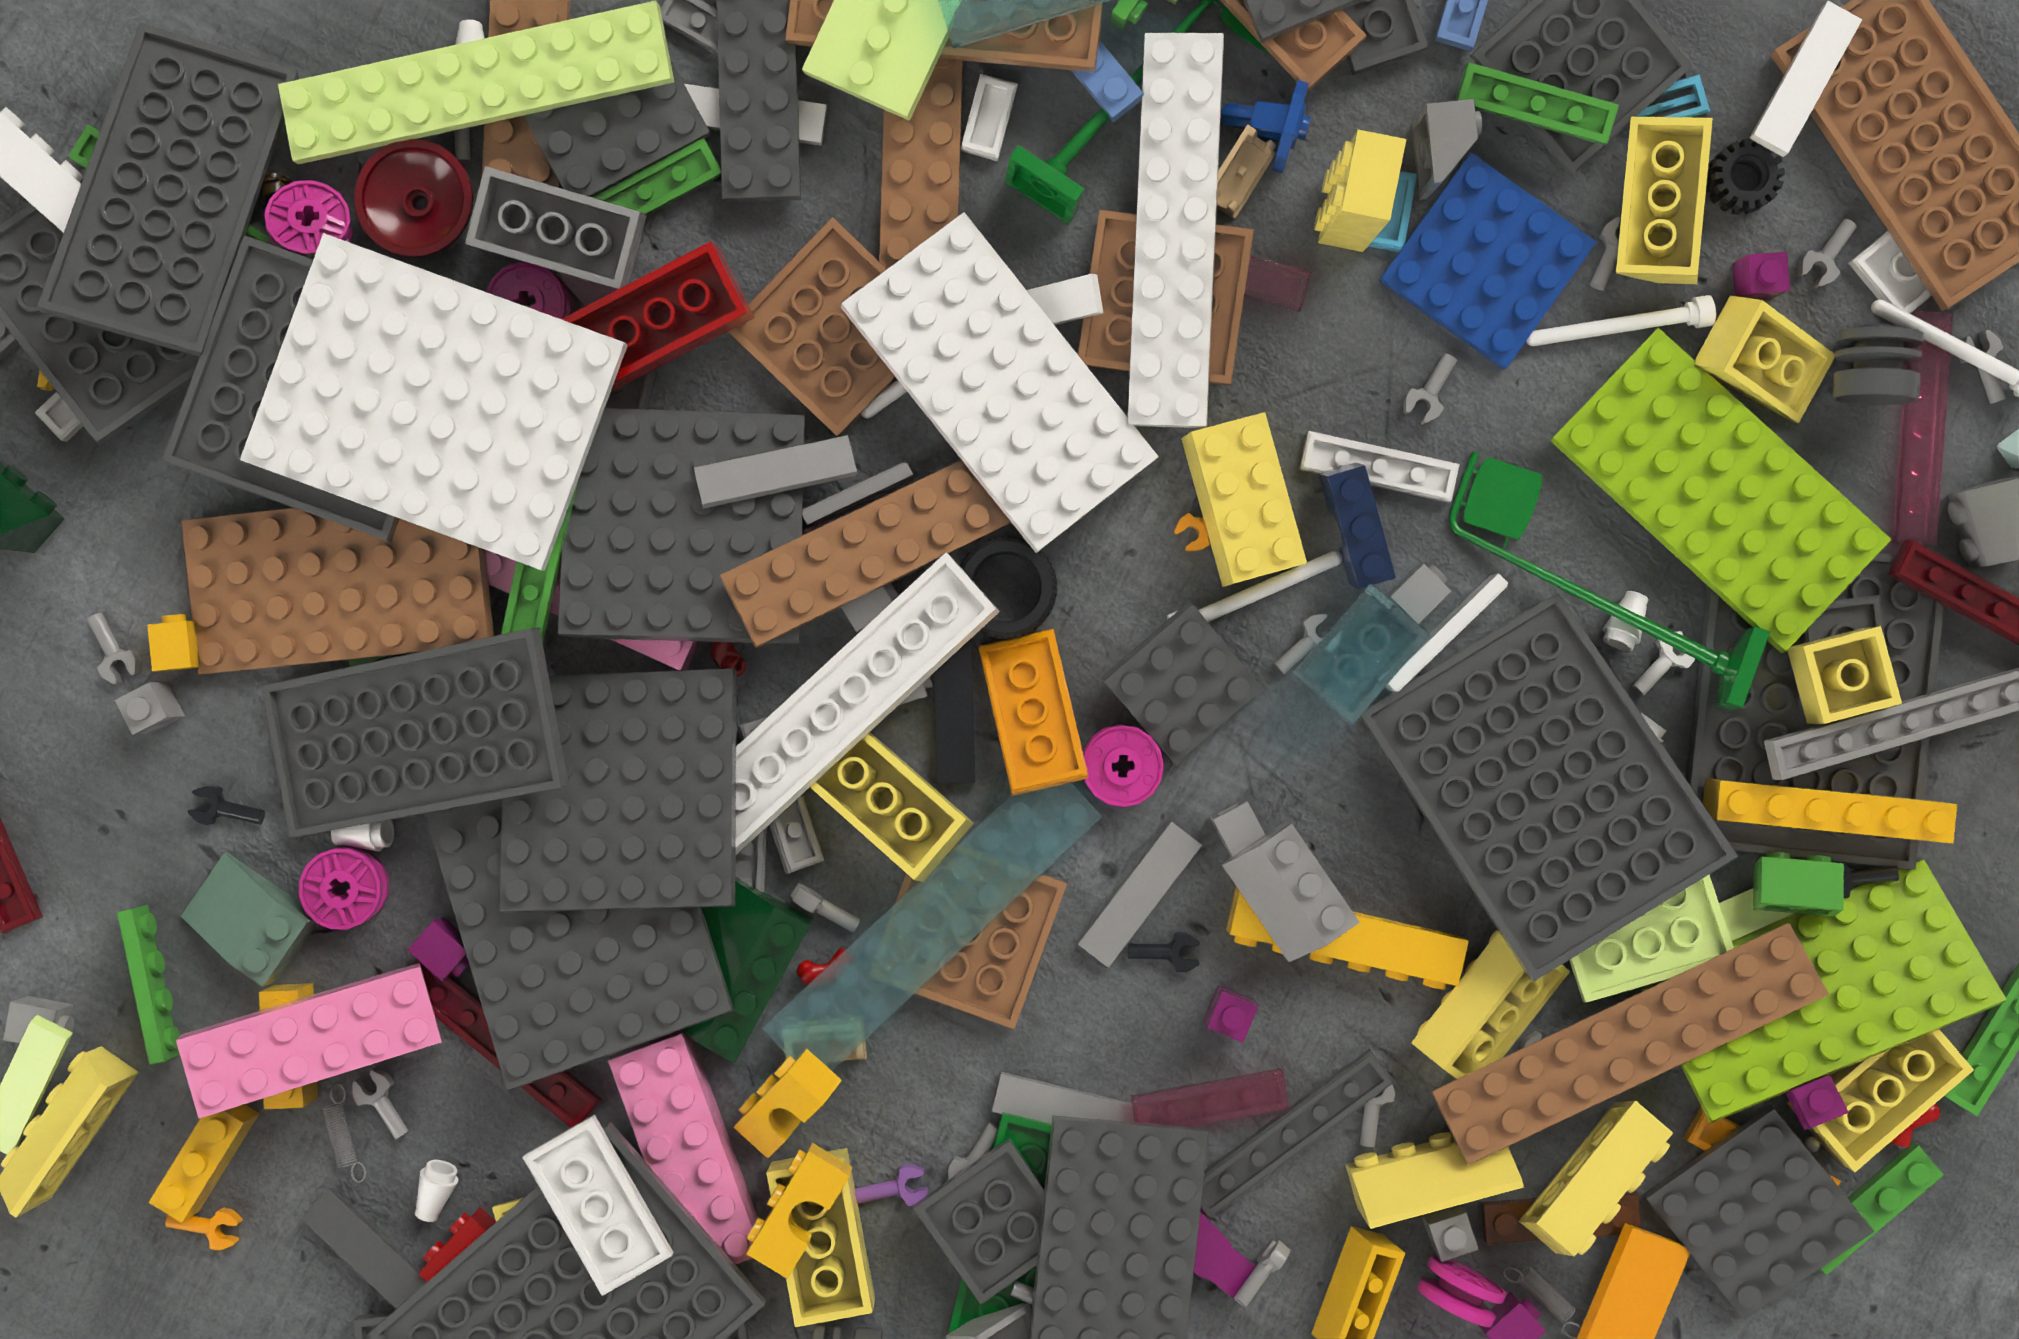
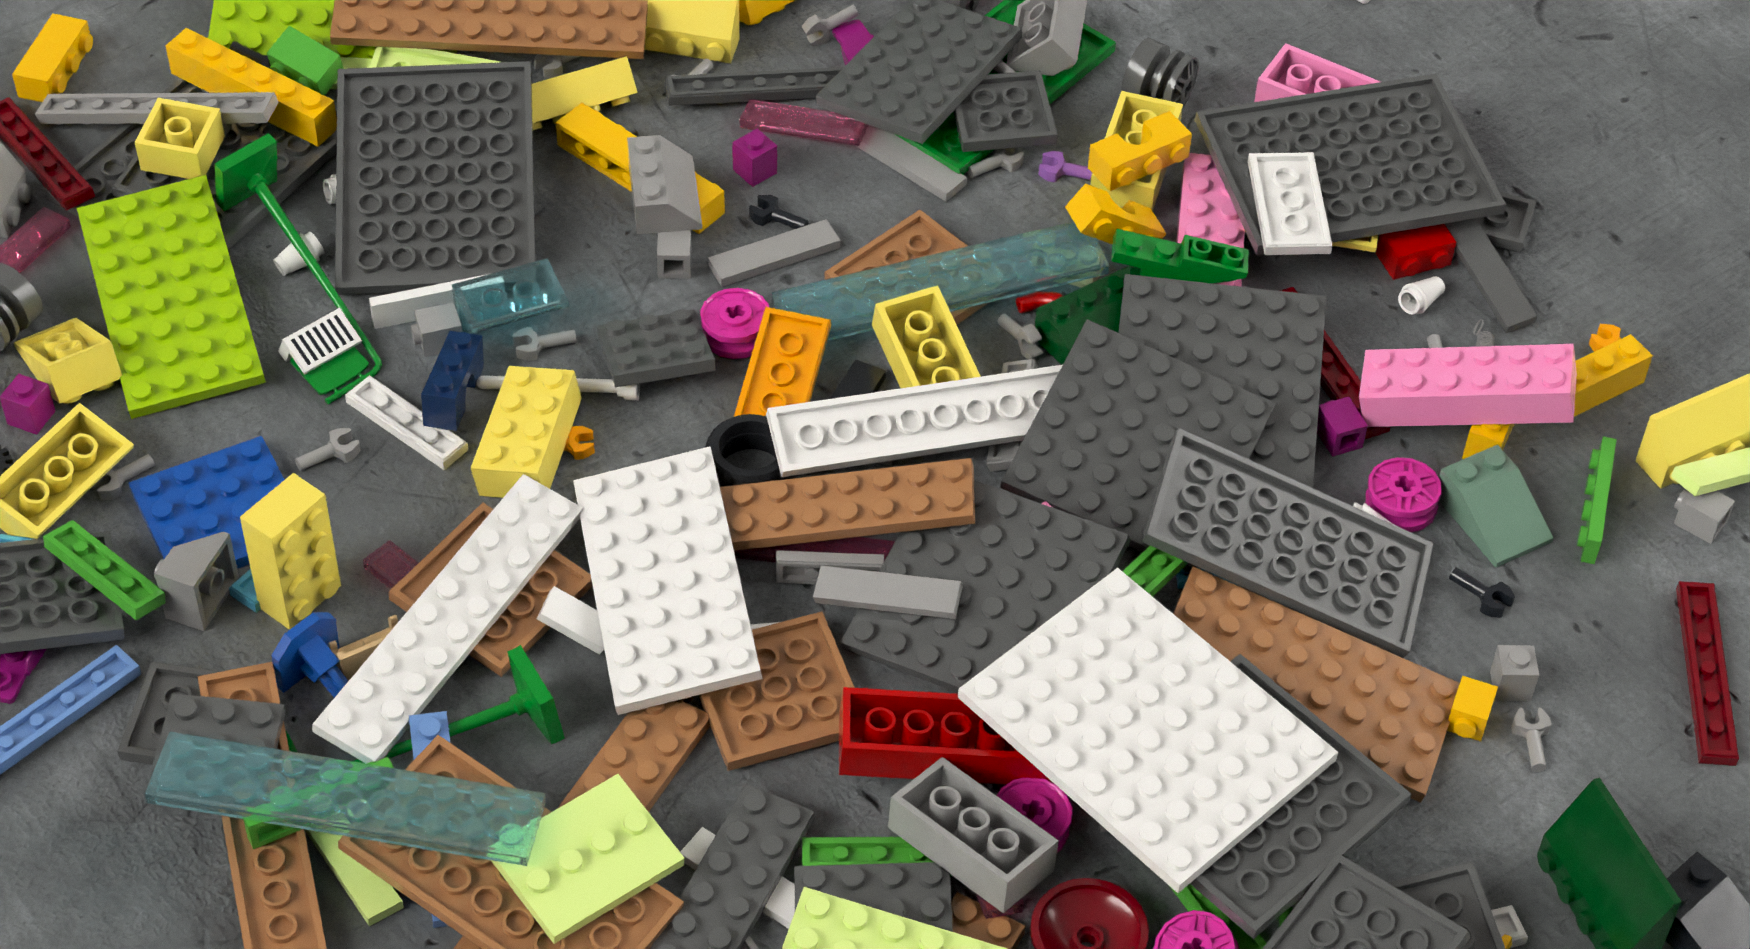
camera: 155 degrees left, 40 degrees down
(682, 1063) = (1190, 260): none -> green slope
(989, 117) = (553, 777): white tile -> none
(1526, 511) = (320, 341): none -> white panel
(1661, 666) = (276, 236): white bar -> none
(1698, 312) = (150, 426): white piece -> none

